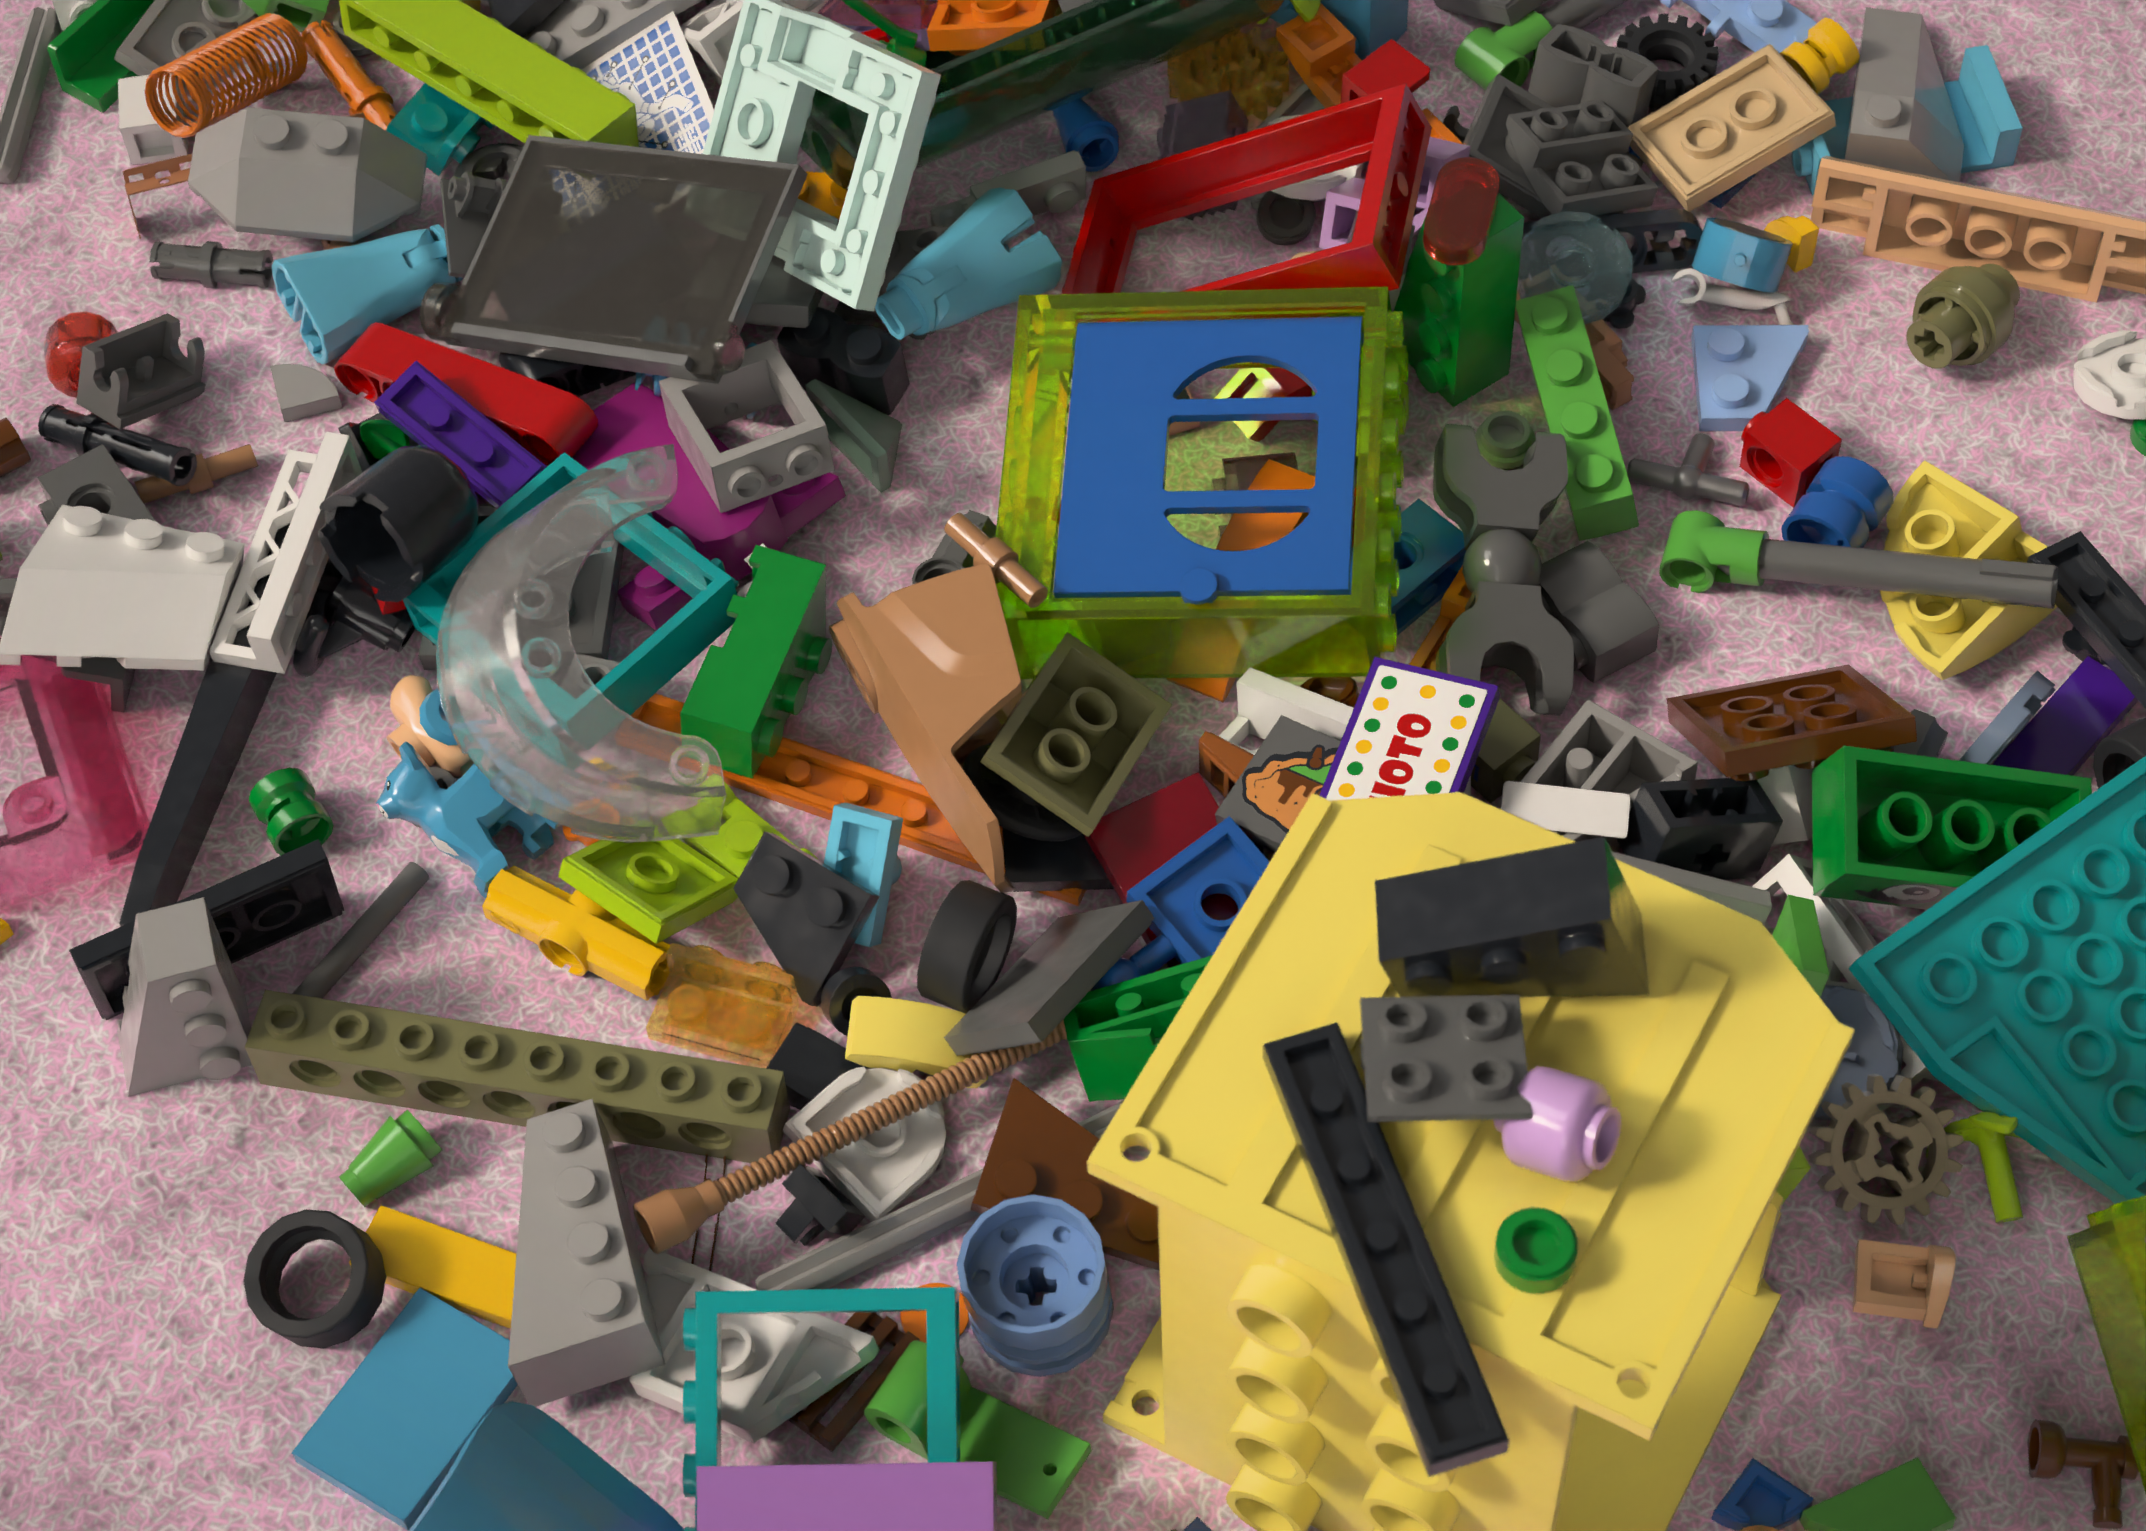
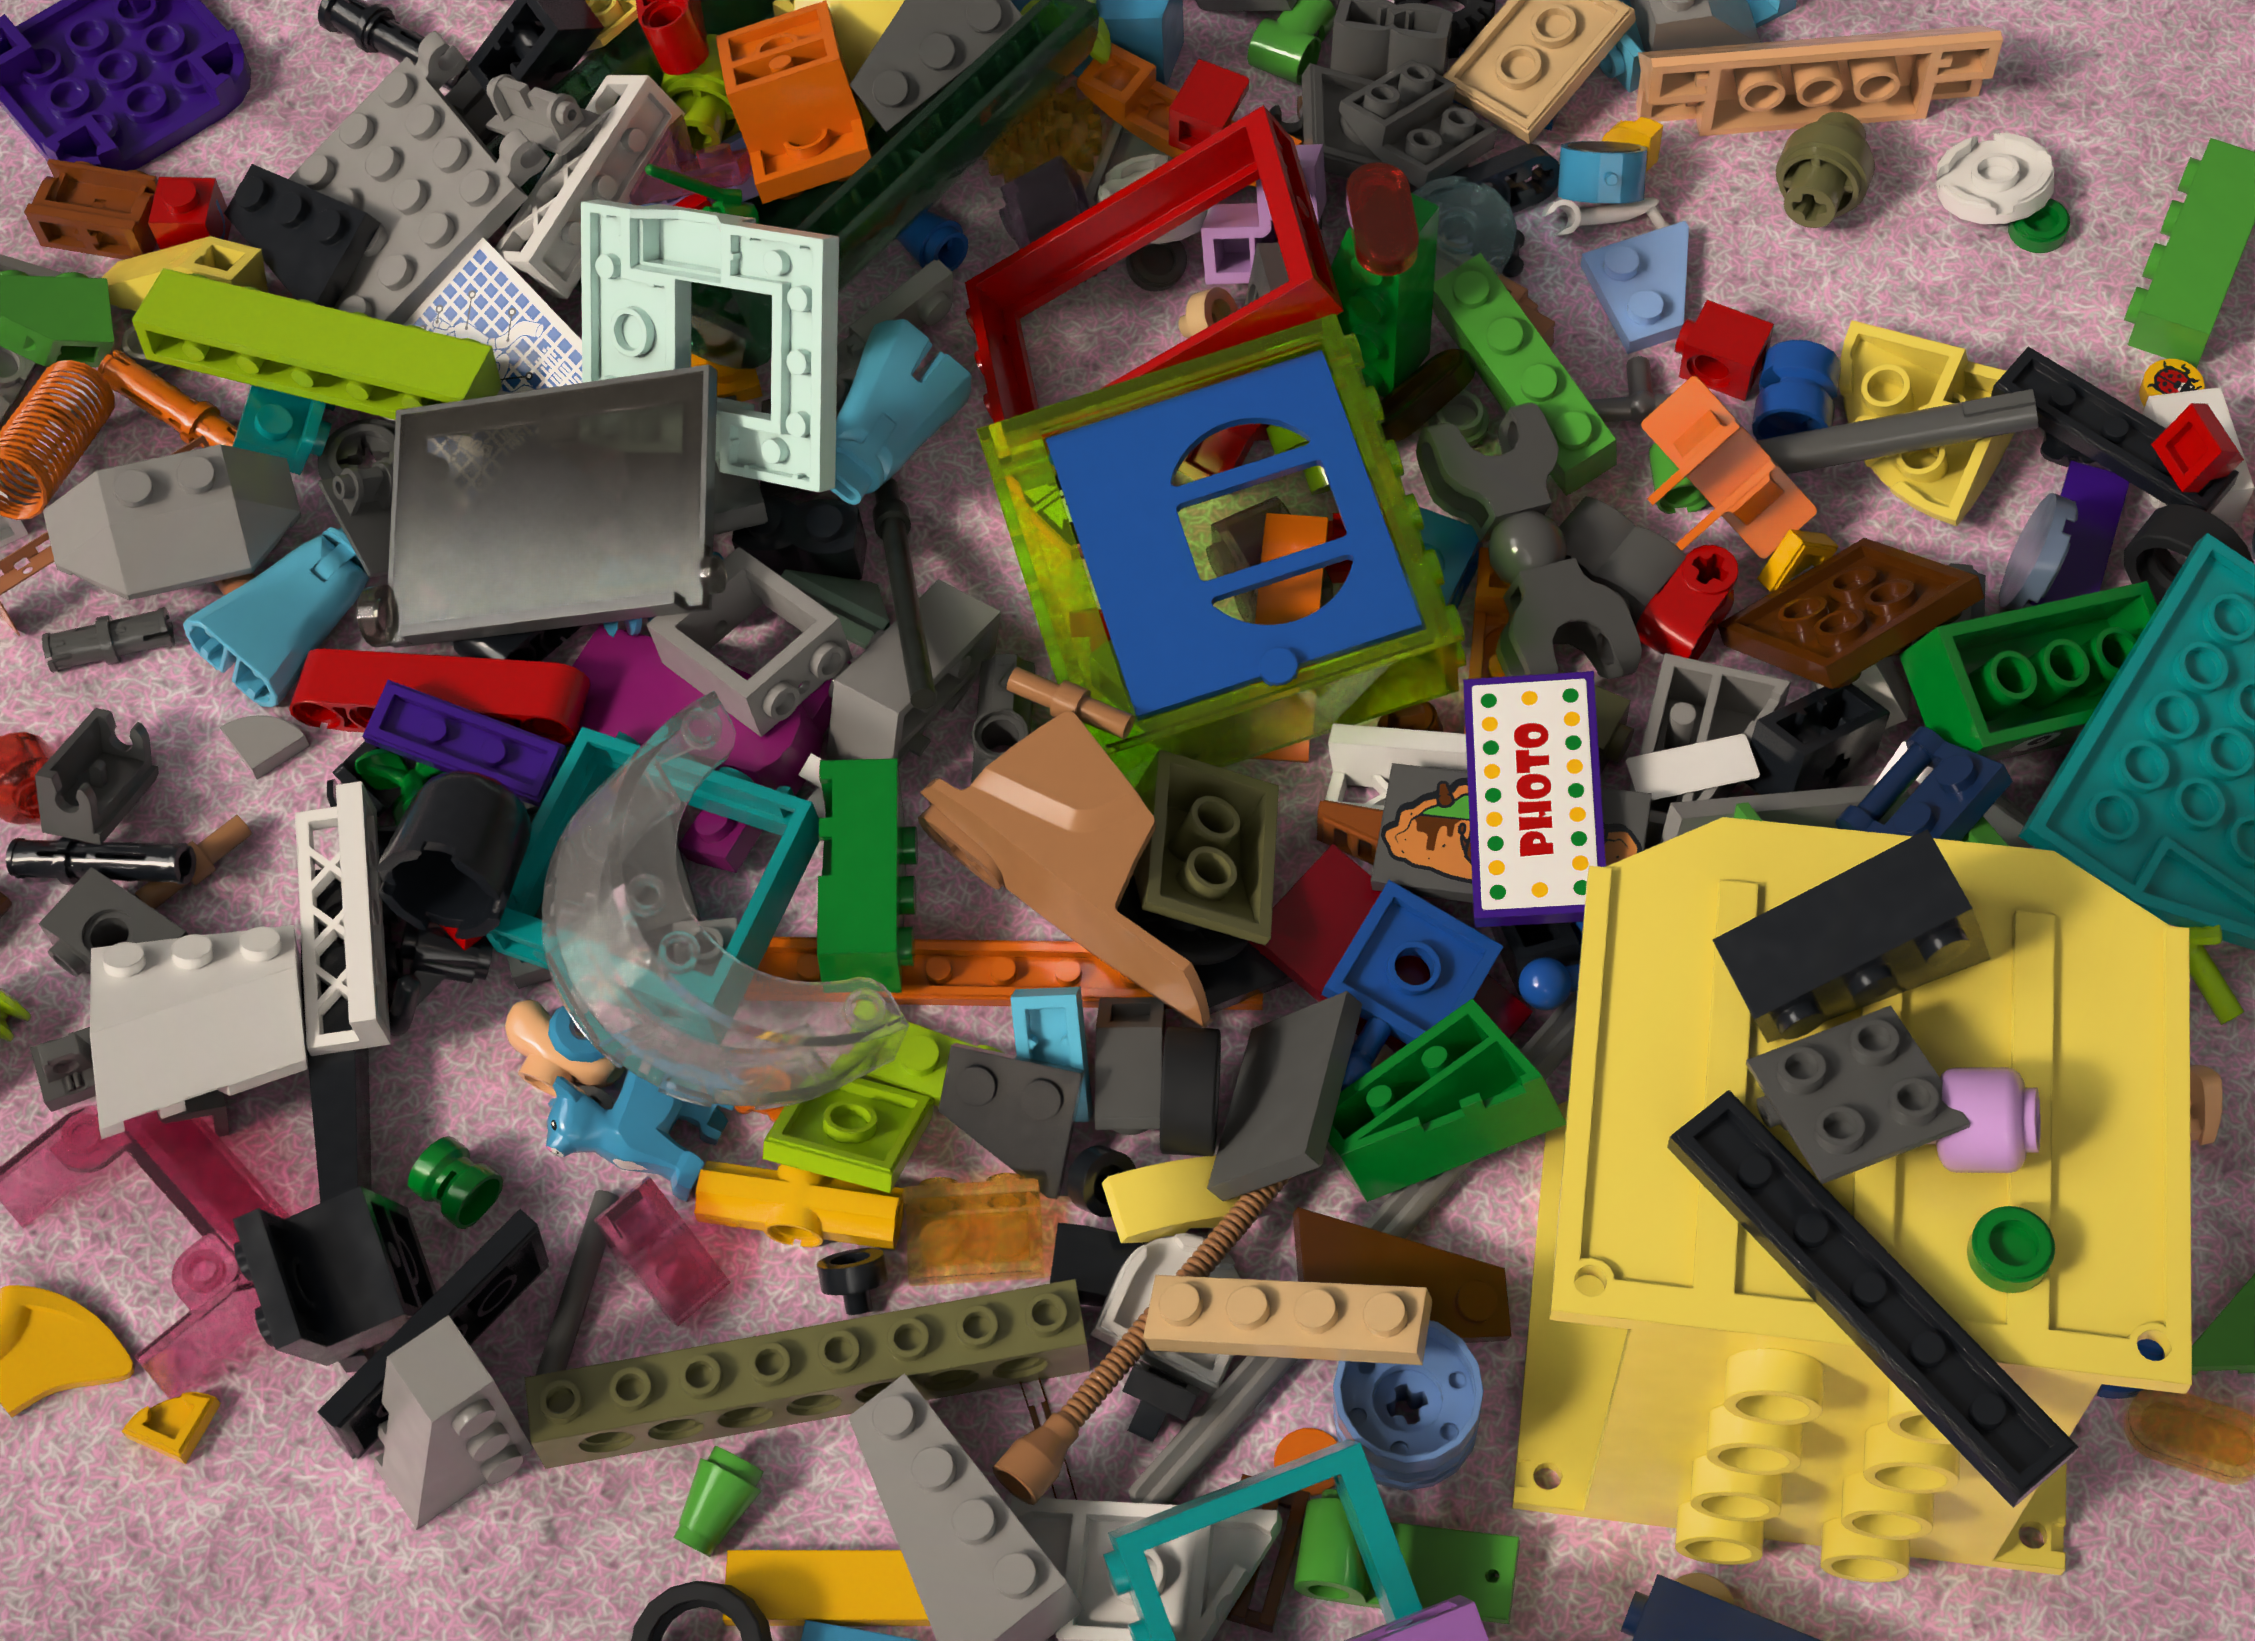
camera: 20 degrees left, 5 degrees up
(137, 839) = (333, 1274): none -> black bracket
(436, 927) = (661, 1251): none -> clear pink slope
(597, 1009) = (853, 1276): none -> black tile
(884, 507) = (872, 696): none -> light grey wedge
(916, 902) = (1129, 1064): none -> dark grey slope
(932, 374) = (892, 526): none -> pearl dark grey bar
(951, 1166) = (1288, 1319): none -> tan plate
(1477, 404) = (1425, 393): none -> dark brown tile
(1646, 670) = (1690, 604): none -> red piece
(1730, 554) = (1726, 469): none -> orange piece
(1771, 658) = (1794, 555): none -> yellow tile
(1798, 910) = (1944, 803): none -> dark blue plate

